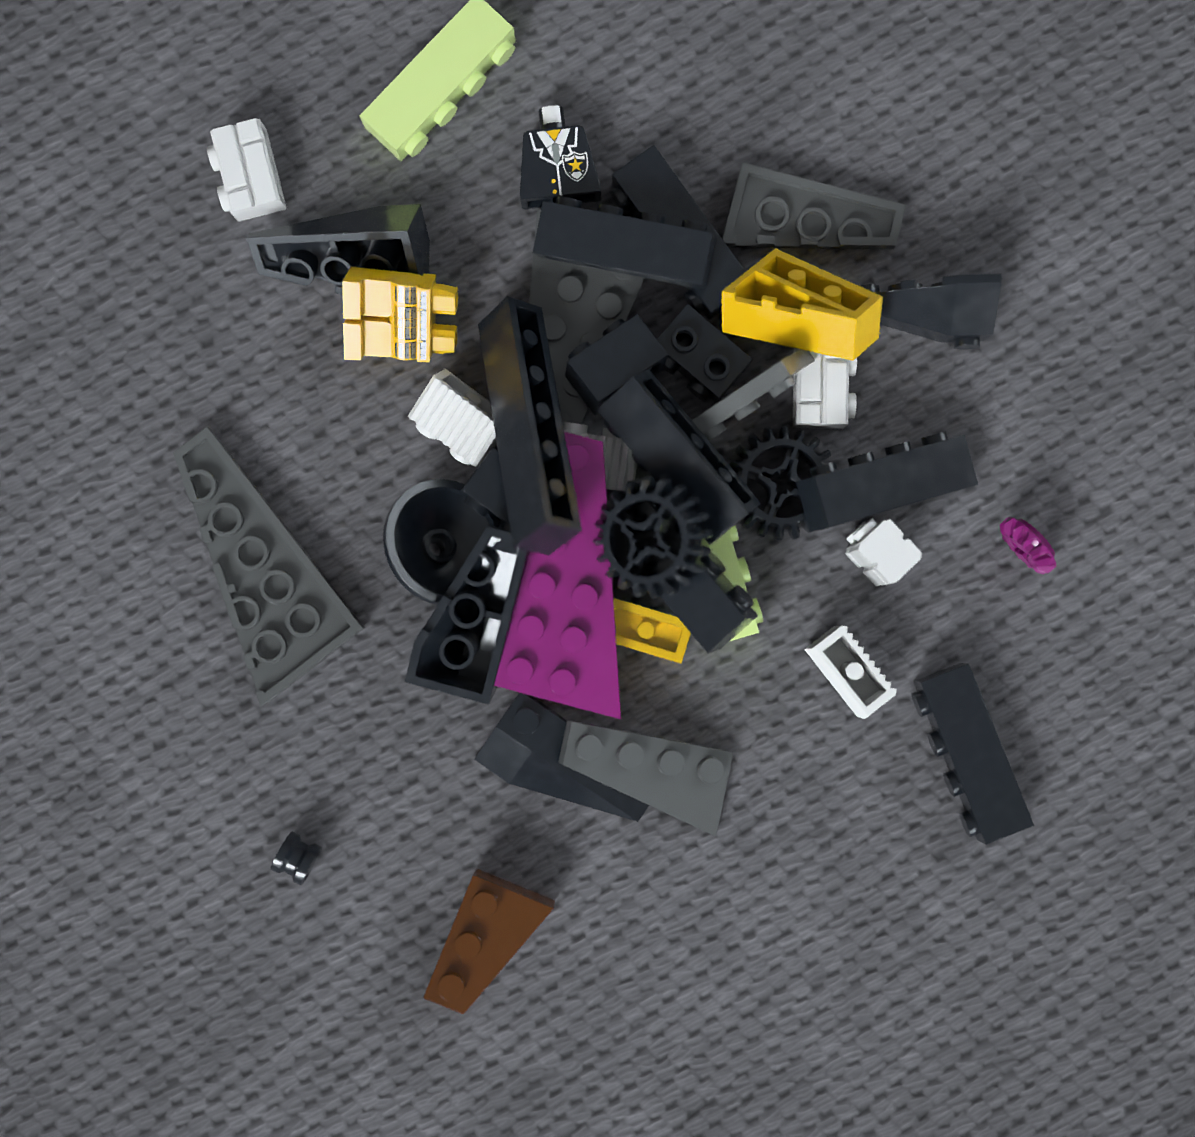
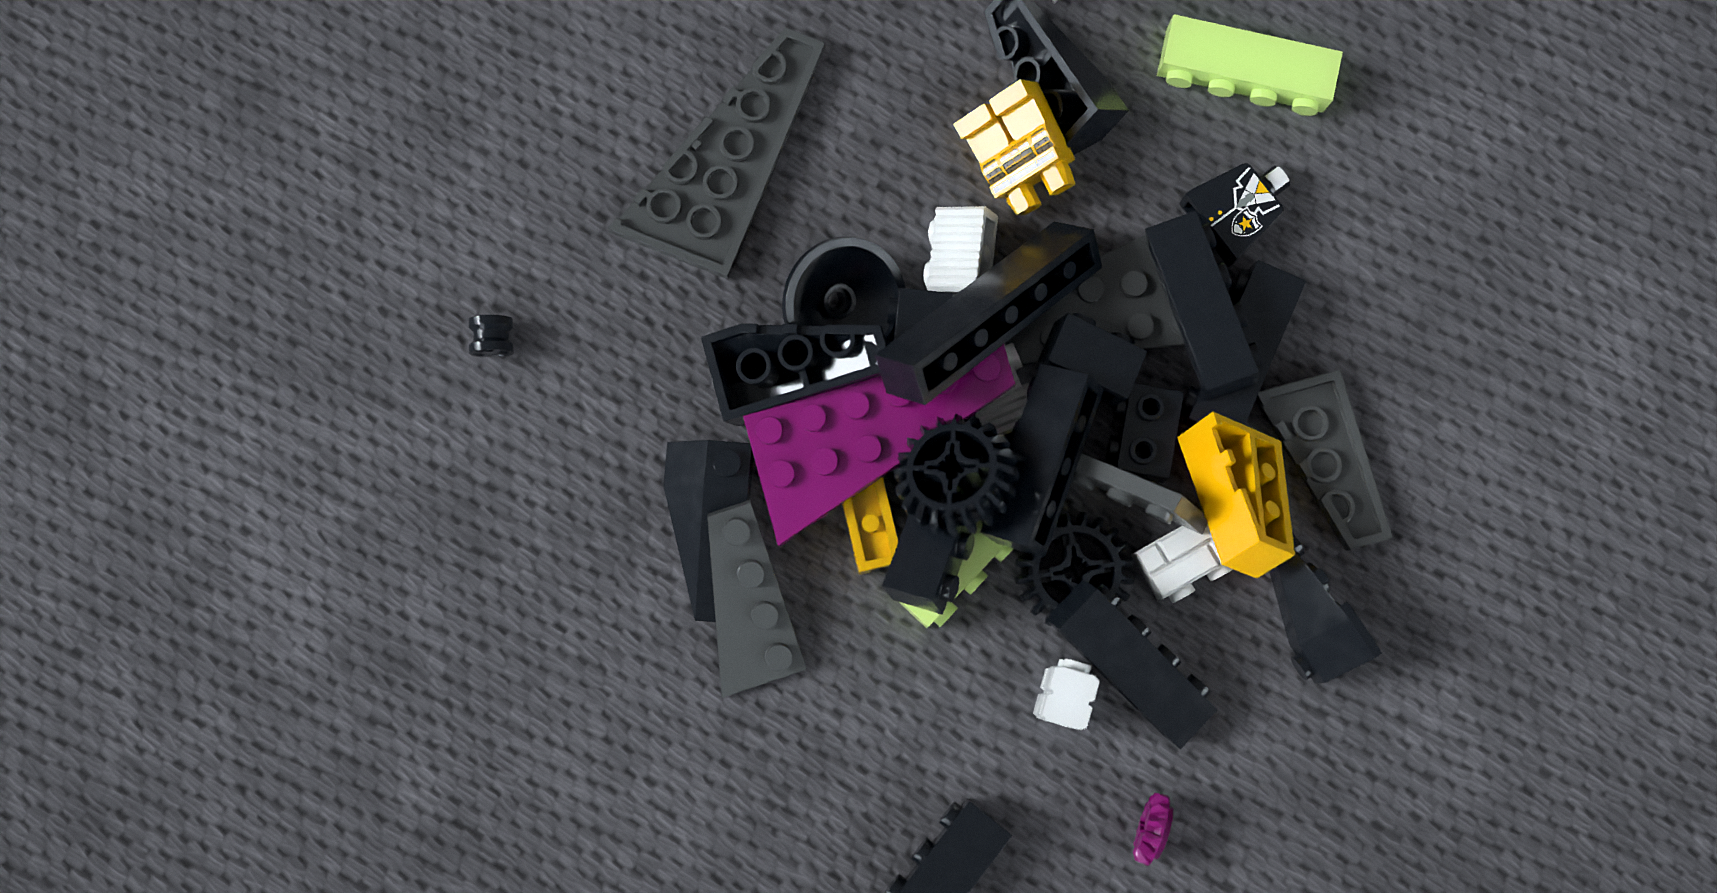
camera: 55 degrees right, 5 degrees down
(484, 937) = (512, 538): reddish brown wedge -> none
(850, 671) = (941, 731): white brick -> none

